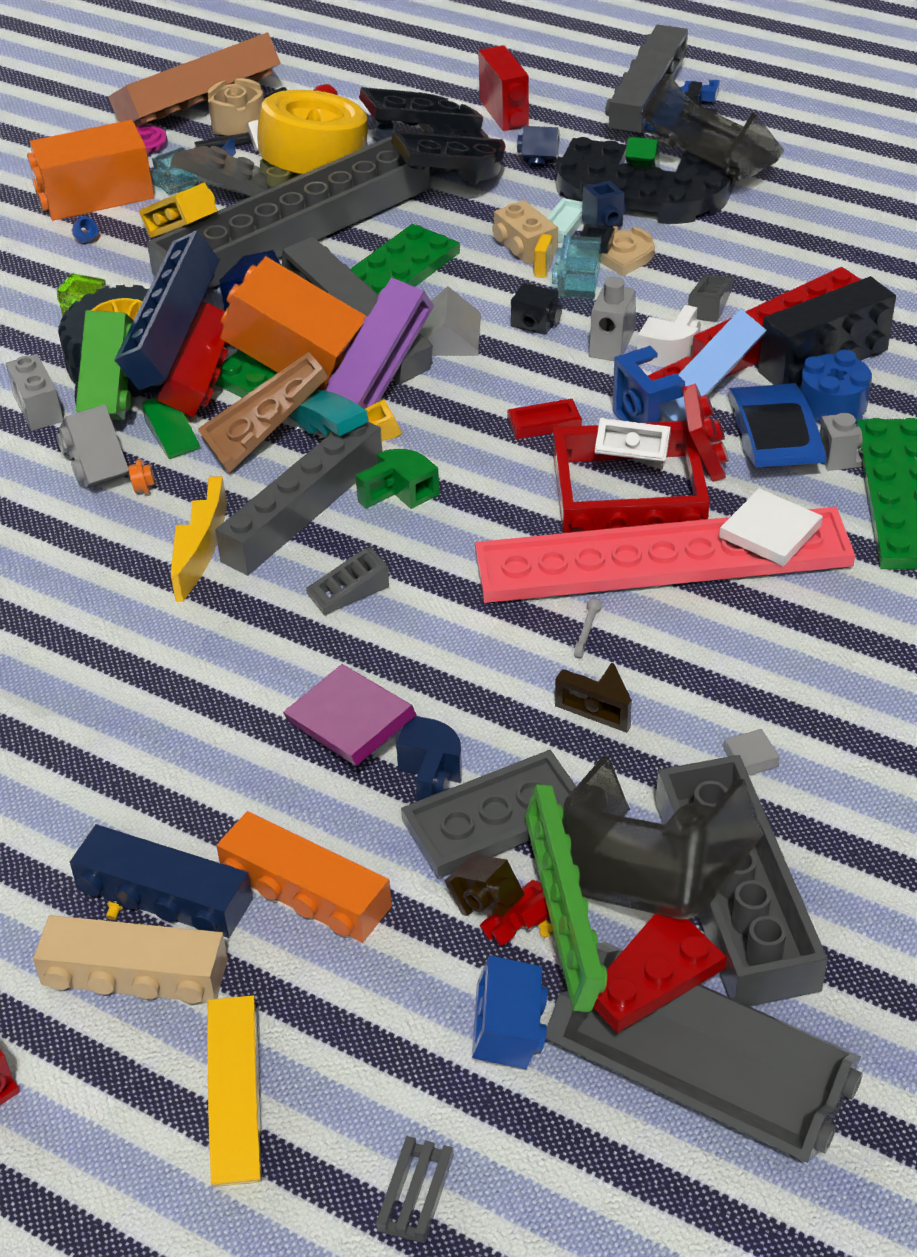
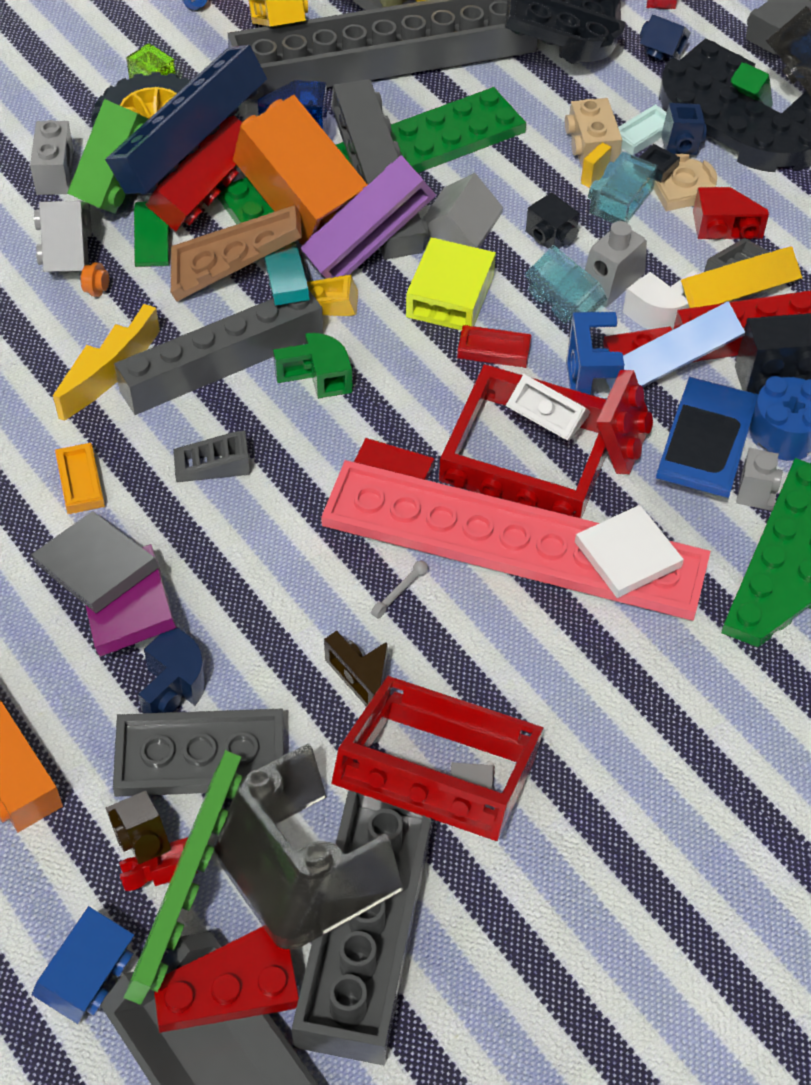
camera: 20 degrees right, 10 degrees up
(231, 640) = (79, 478): none -> light orange tile
(297, 695) = (94, 561): none -> tile
(477, 381) = (450, 284): none -> neon yellow brick
(515, 528) = (394, 459): none -> red tile
(581, 351) = (564, 285): none -> clear light blue brick
(681, 260) = (728, 215): none -> red slope
(724, 728) = (425, 789): none -> red window
(728, 299) = (742, 278): none -> yellow slope

